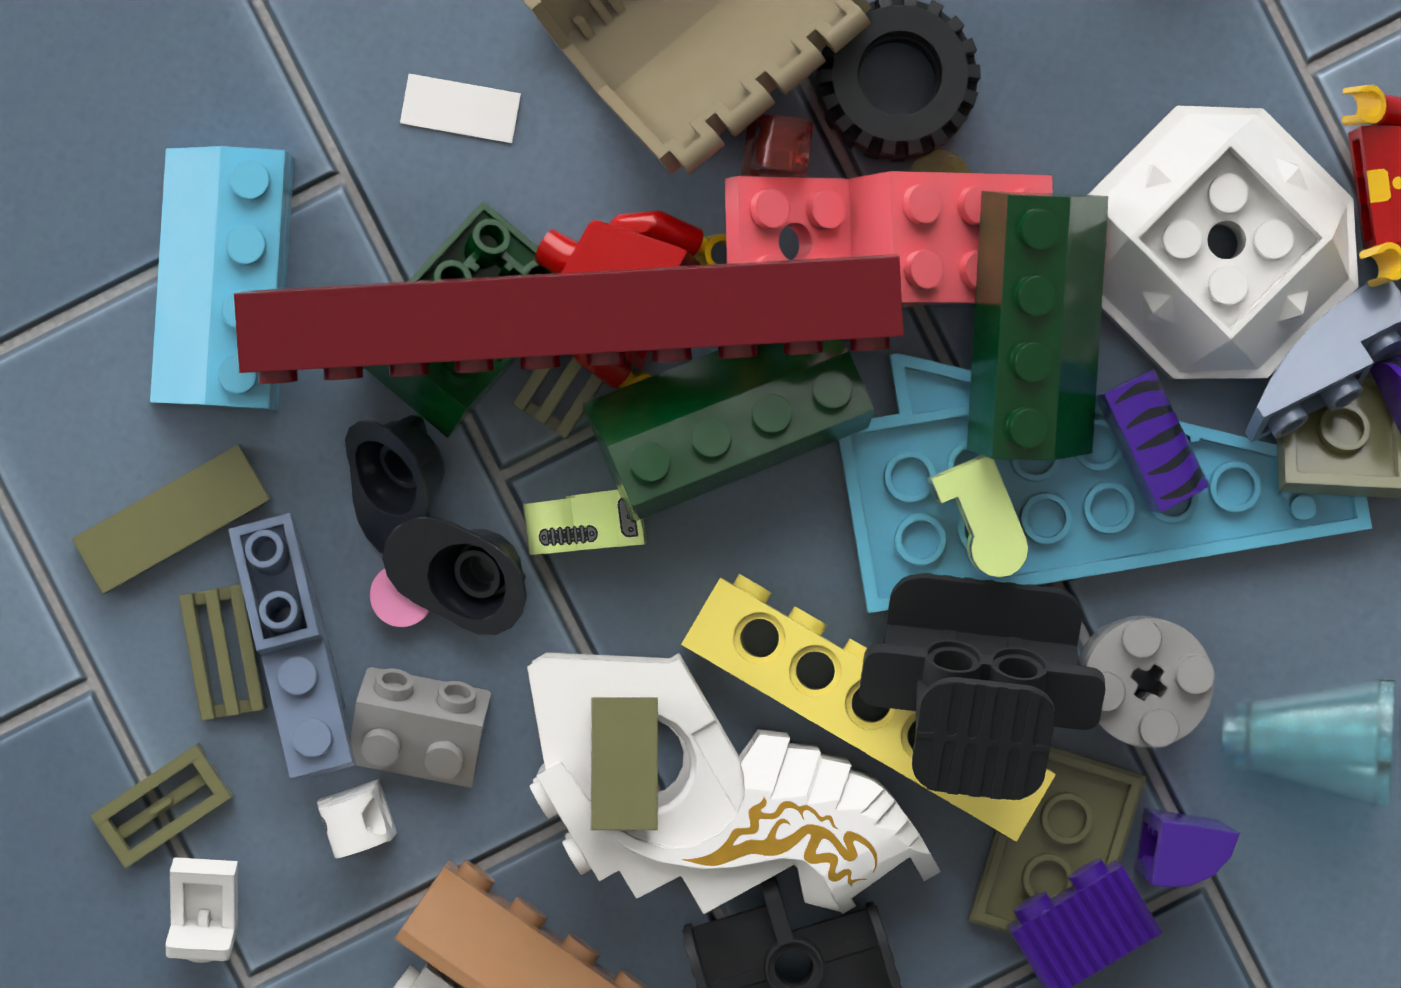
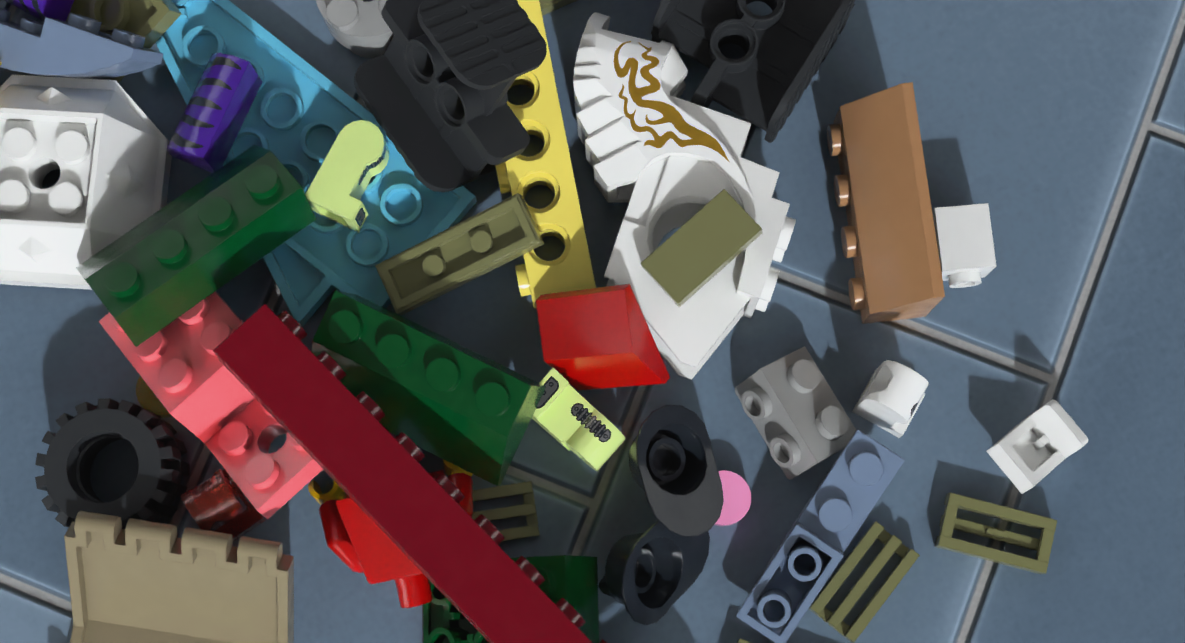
camera: 125 degrees left, 10 degrees down
(632, 606) = (599, 338): none -> red slope
(820, 550) = (459, 254): none -> olive tile

